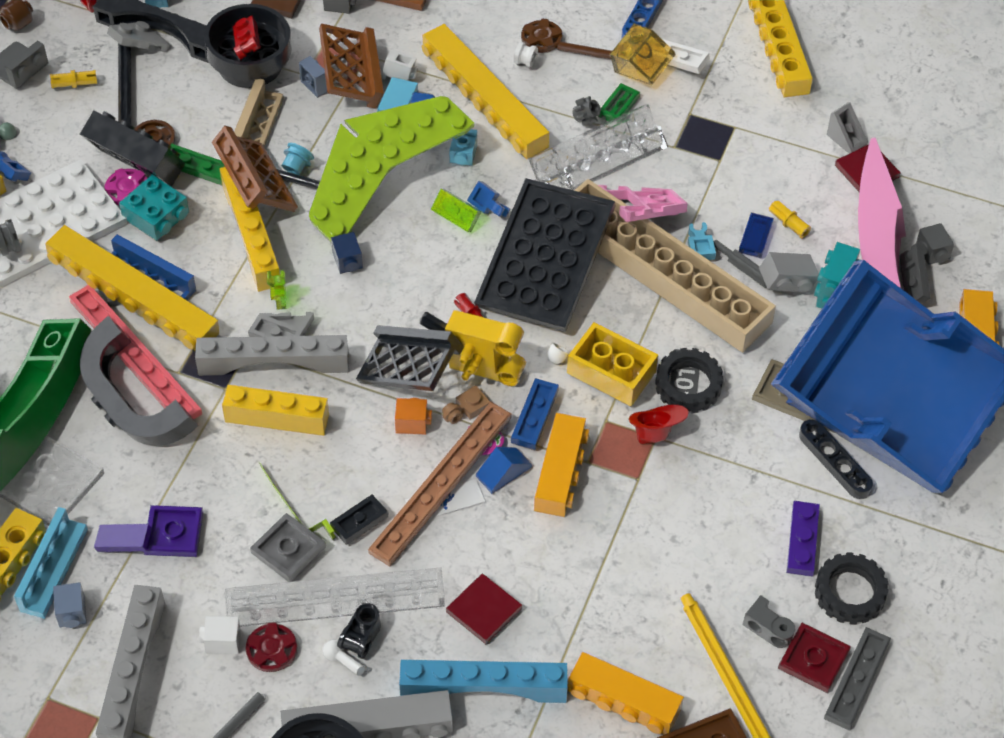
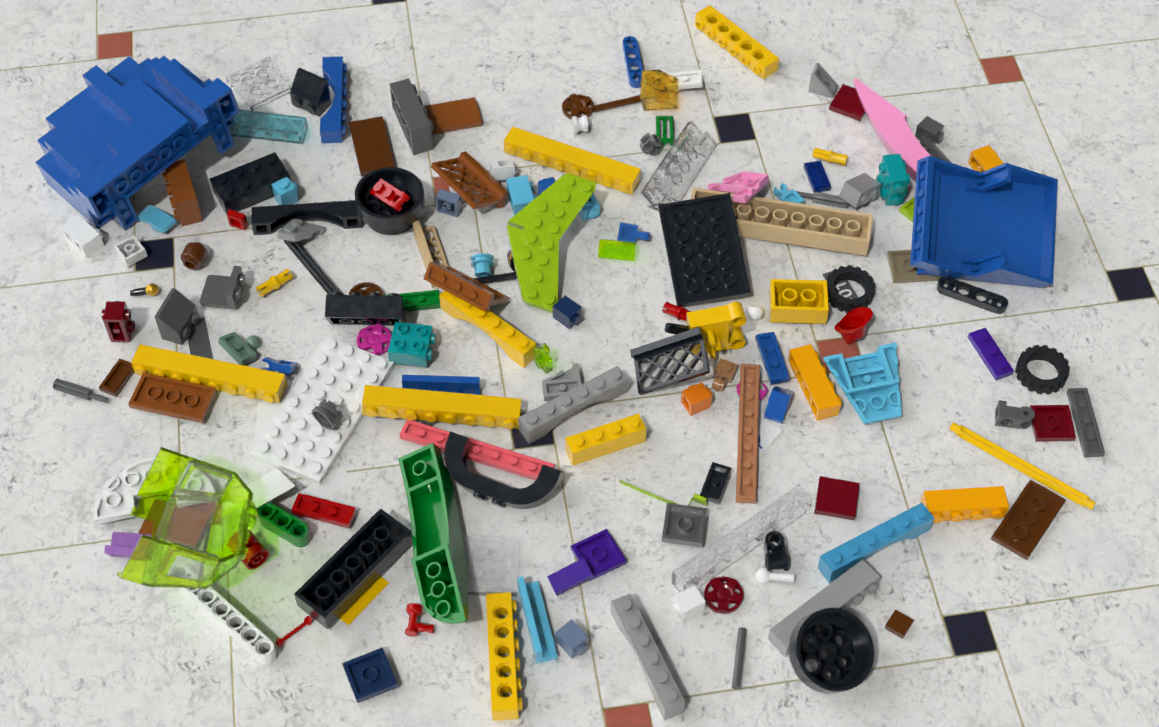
camera: 30 degrees left, 0 degrees up
(622, 497) = (870, 382): none -> medium azure wedge

